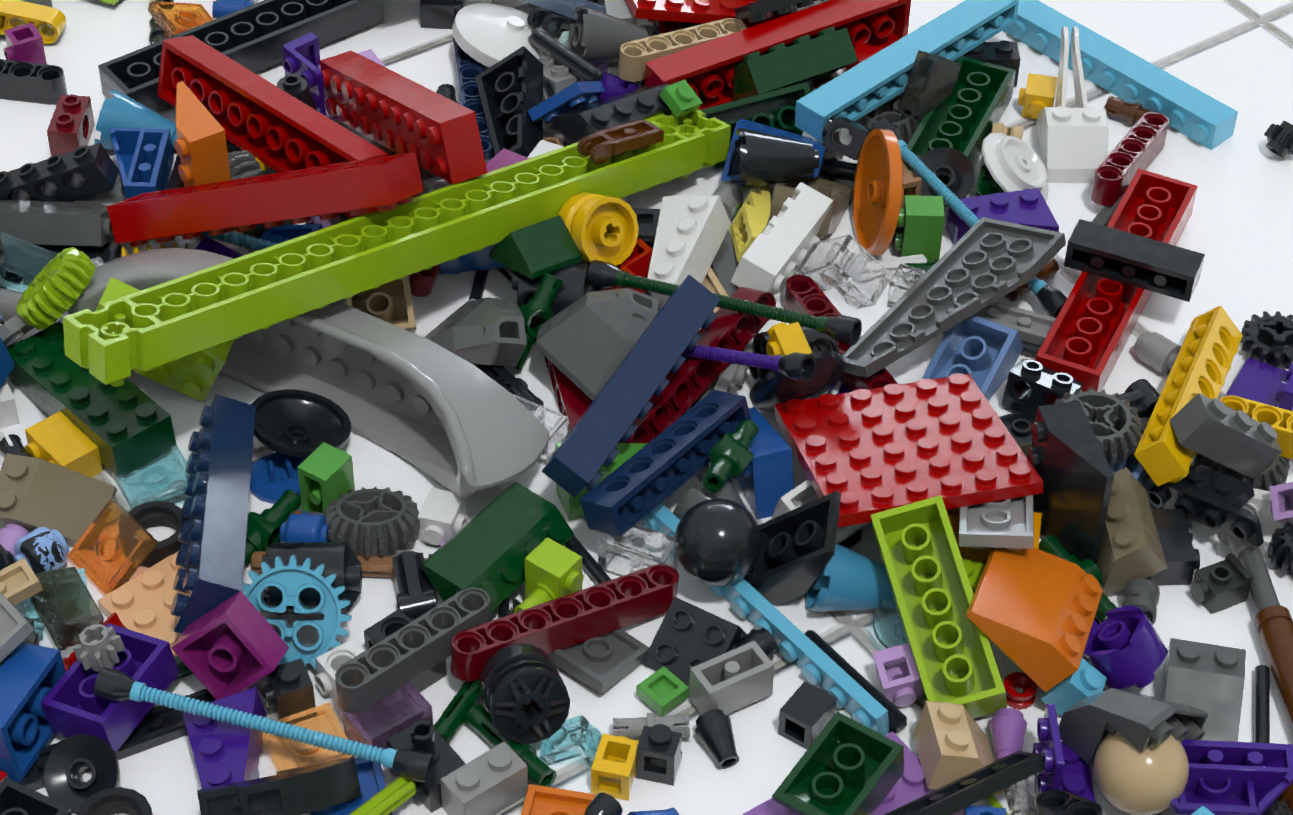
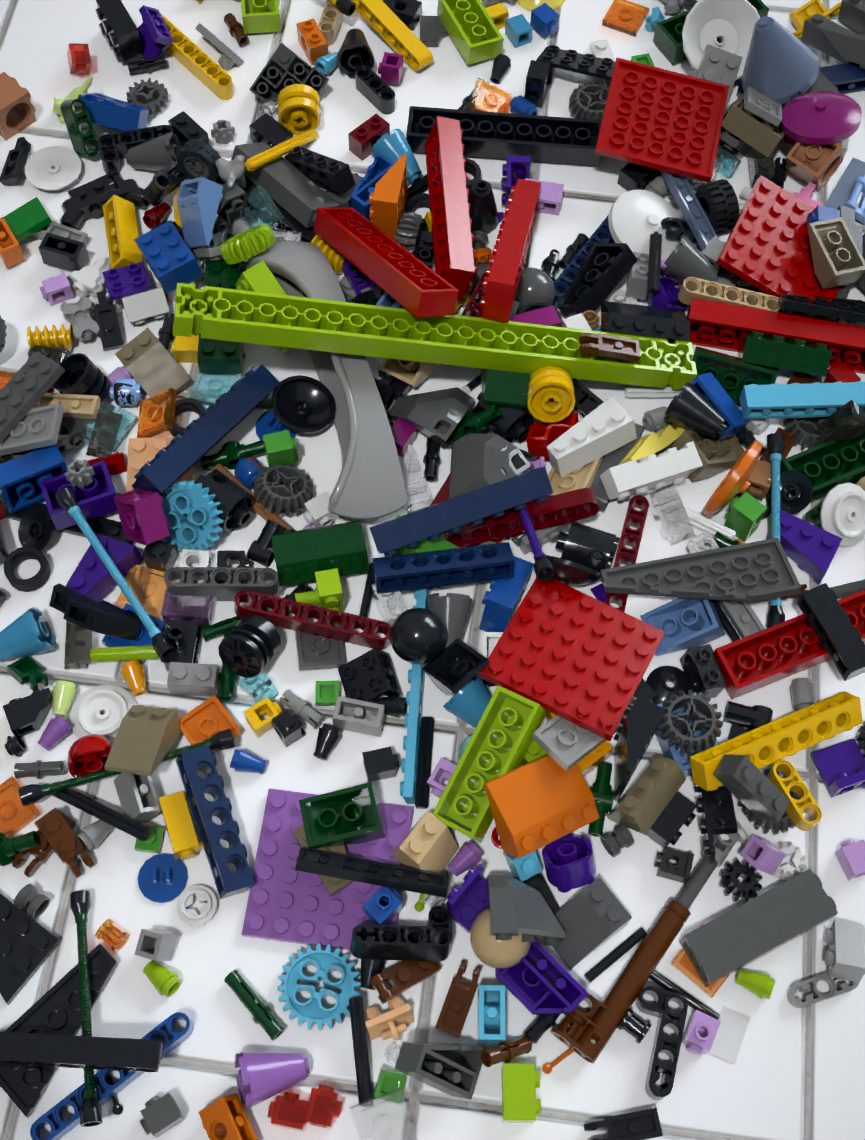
camera: 40 degrees right, 20 degrees up
(570, 98) = (624, 296): blue plate -> none
(680, 98) = (683, 337): bright green plate -> none
(690, 183) = (635, 391): none -> white axle
(730, 456) = (473, 590): dark green pin -> none
(786, 340) = (569, 545): yellow brick -> none
(832, 140) = (760, 430): black brick -> none
(840, 328) = (600, 559): hose -> none

